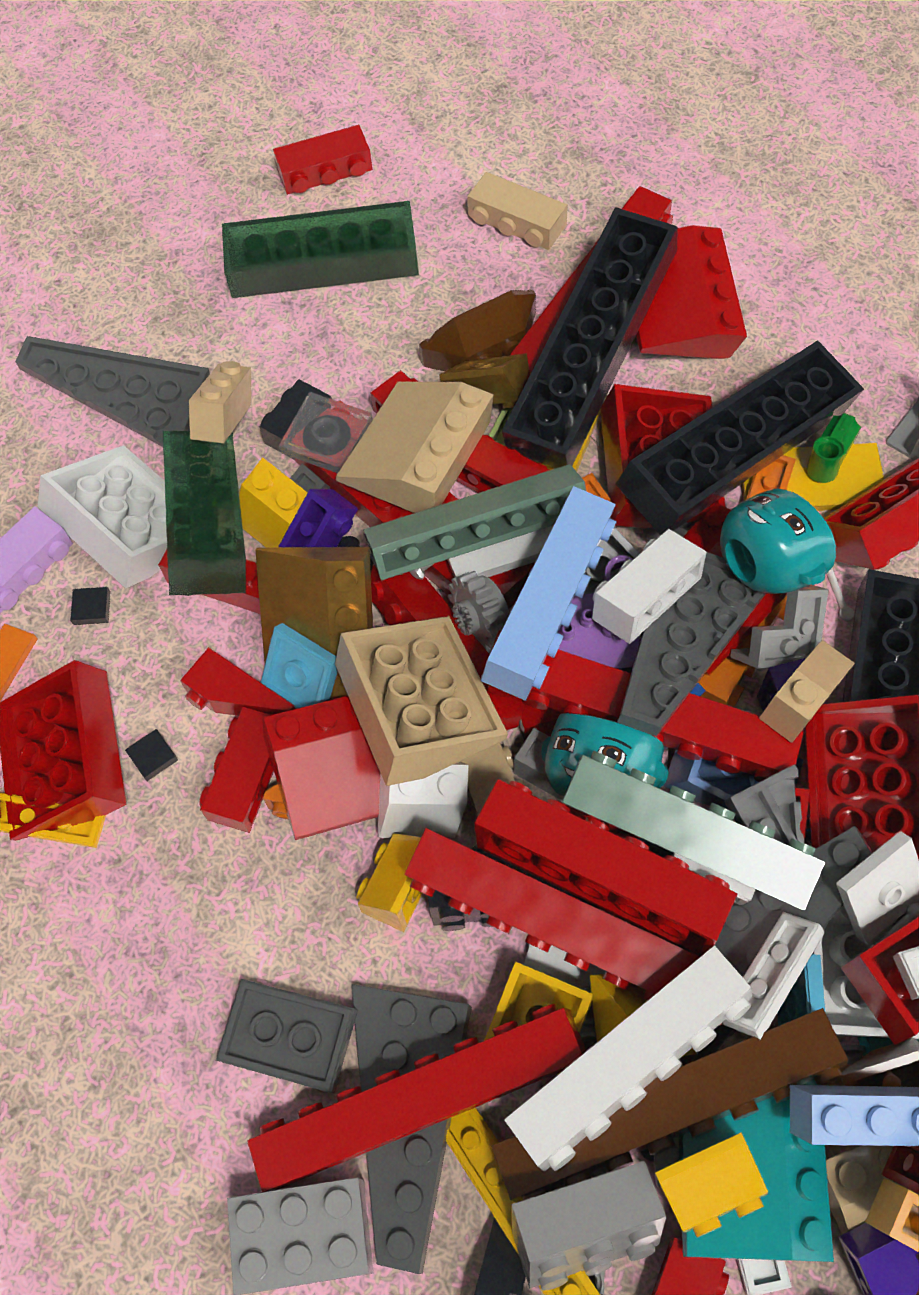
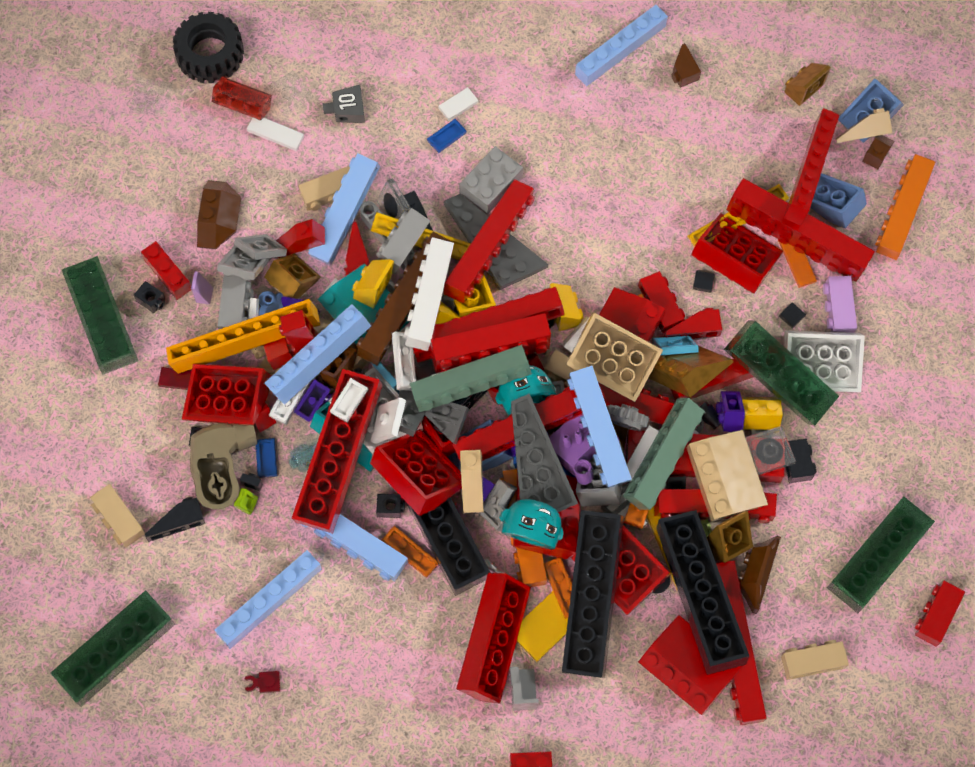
camera: 130 degrees right, 5 degrees up
(127, 388) = (887, 417): dark grey wing -> none
(220, 402) = (832, 431): tan brick -> none
(287, 1035) = (554, 231): dark grey tile -> none
(648, 585) = (565, 460): white brick -> none
(832, 448) = (553, 636): green piece -> none

